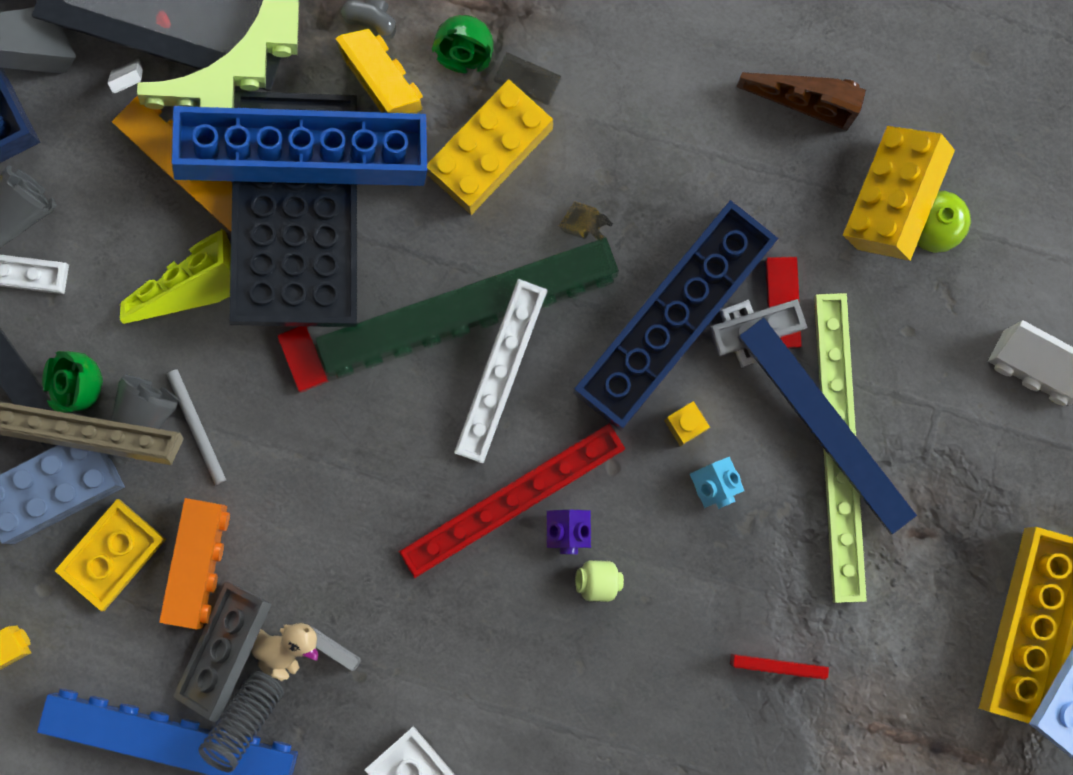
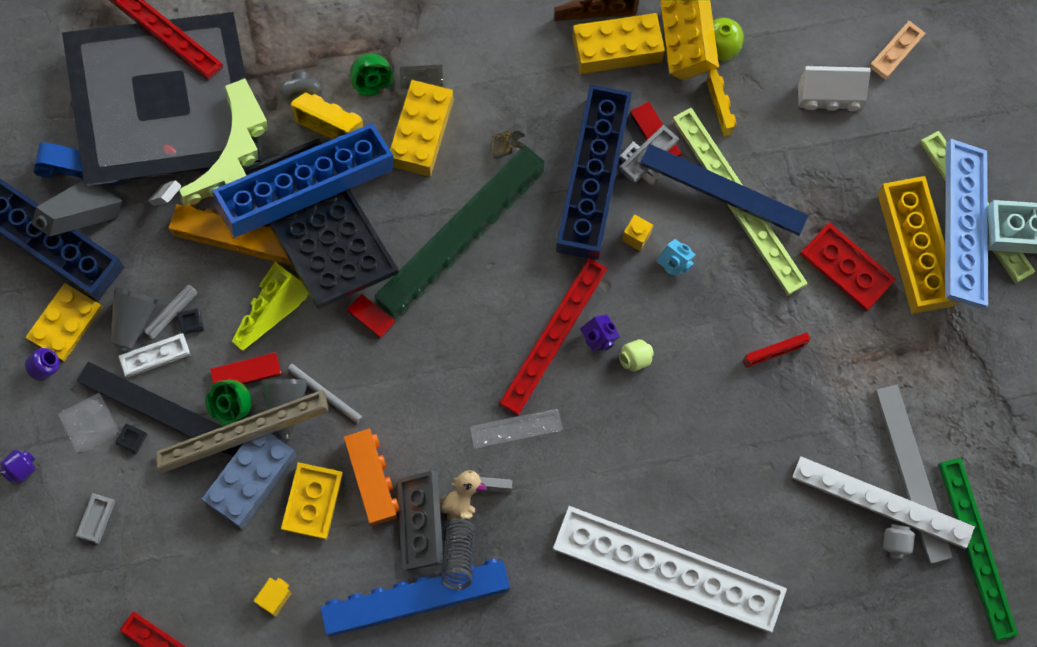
camera: 30 degrees left, 10 degrees down
(66, 227) = (170, 311): none -> light grey axle
(84, 252) = (190, 321): none -> black tile
(118, 350) = (248, 370): none -> red tile
(401, 595) = (516, 429): none -> clear plate
(500, 371) = (503, 258): white tile -> none
(800, 160) = (618, 43): none -> yellow brick
(889, 306) = (721, 102): none -> yellow plate
(931, 606) = (847, 266): none -> red plate

